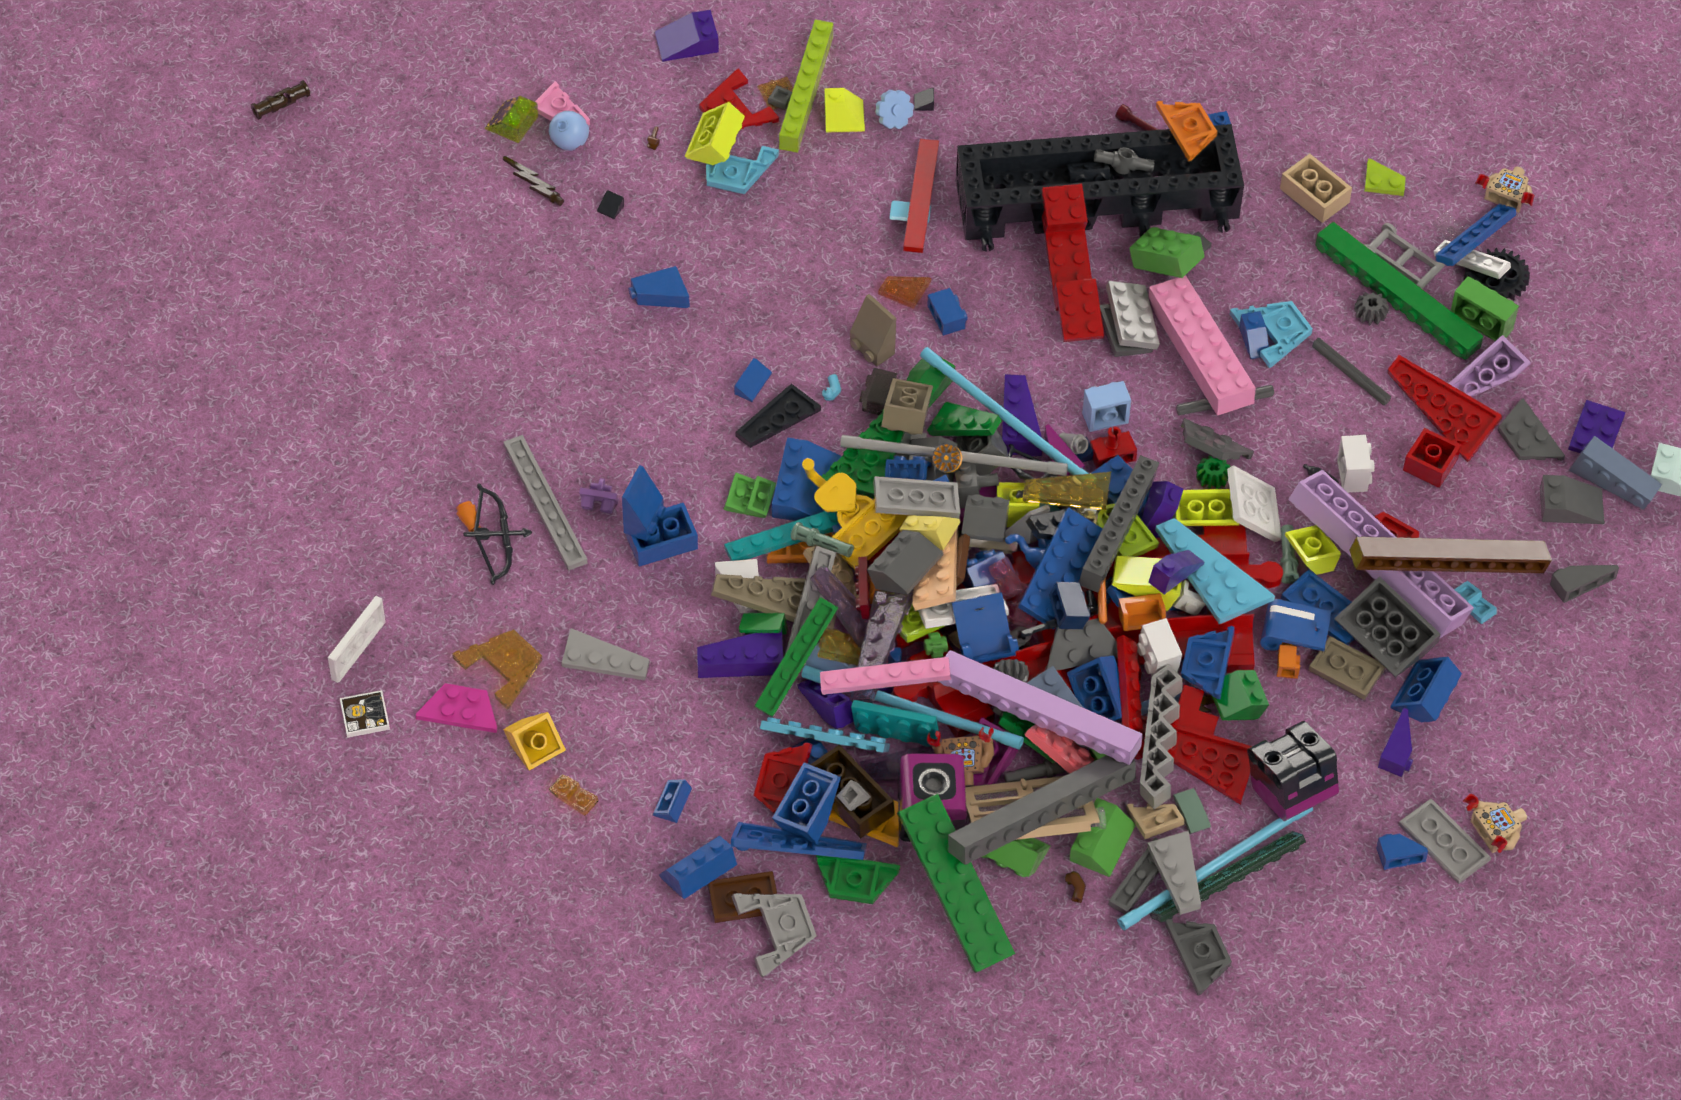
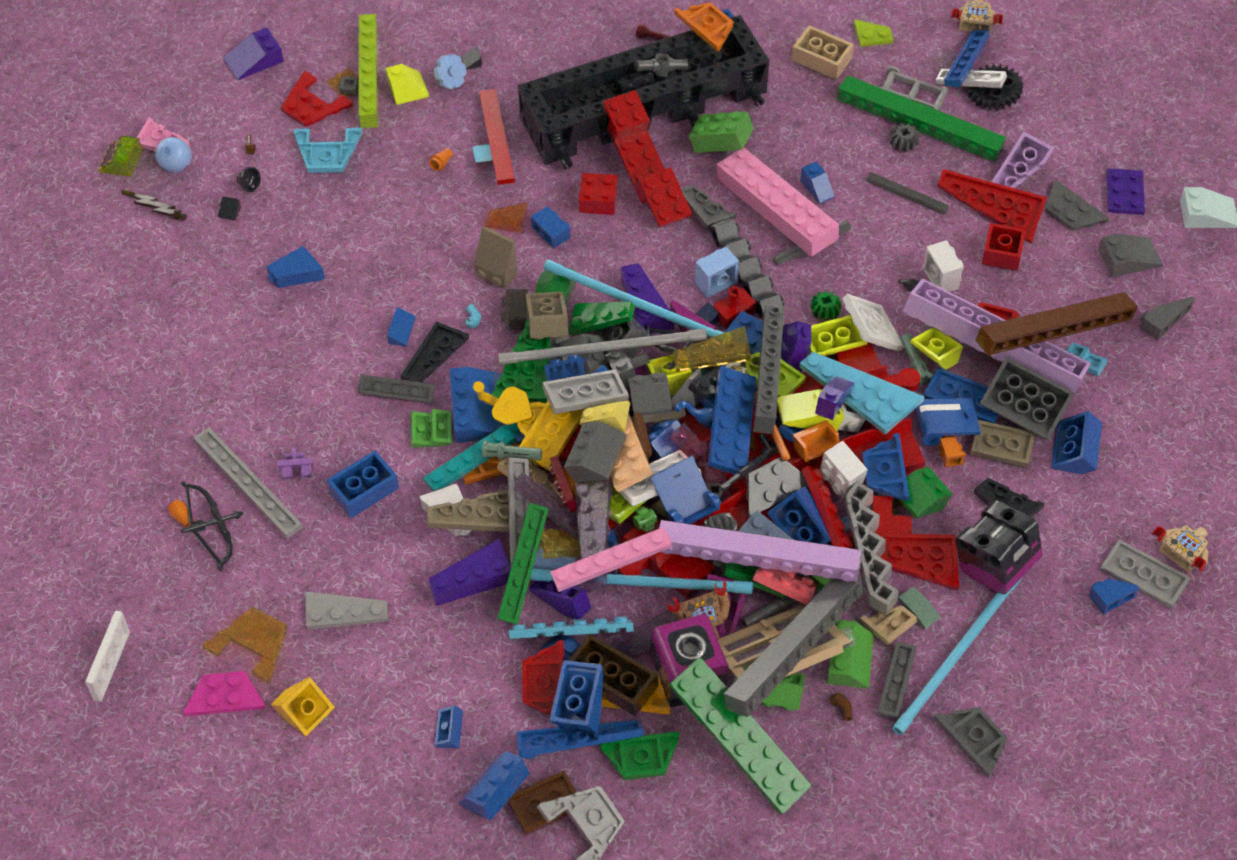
camera: 15 degrees left, 0 degrees up
(364, 713) = (134, 725): tile -> none
(572, 794) = (354, 748): clear yellow slope -> none
(641, 176) = (249, 177): none -> black piece
(641, 506) = (340, 462): blue slope -> none
(715, 135) = (303, 127): neon yellow slope -> none
(727, 444) = (396, 388): none -> dark grey tile
(763, 623) = (481, 540): green panel -> none
(853, 206) = (439, 160): none -> orange cone
(853, 795) = (619, 679): light grey slope -> none
(893, 722) = (631, 600): teal plate -> none
(947, 458) = (598, 350): wheel -> none
(1010, 287) = (598, 193): none -> red brick
(1069, 605) = (754, 452): brick -> none
(1075, 442) = (702, 309): light grey cone -> none
(1132, 315) = (709, 191): light grey plate -> none
(1143, 409) = (749, 274): none -> brick
(1176, 866) = (930, 666): light grey wing -> none
(1212, 443) = (813, 280): dark grey wing -> none
(1237, 871) = (973, 658): clear green plate -> none
(1283, 325) = (840, 169): medium azure wing -> none
(1329, 728) = (993, 490): none -> black wing
(1398, 749) = (1075, 502): dark purple slope -> none
(1484, 309) = (999, 114): bright green brick -> none
(1615, 473) = (1156, 221): sand blue wedge -> none

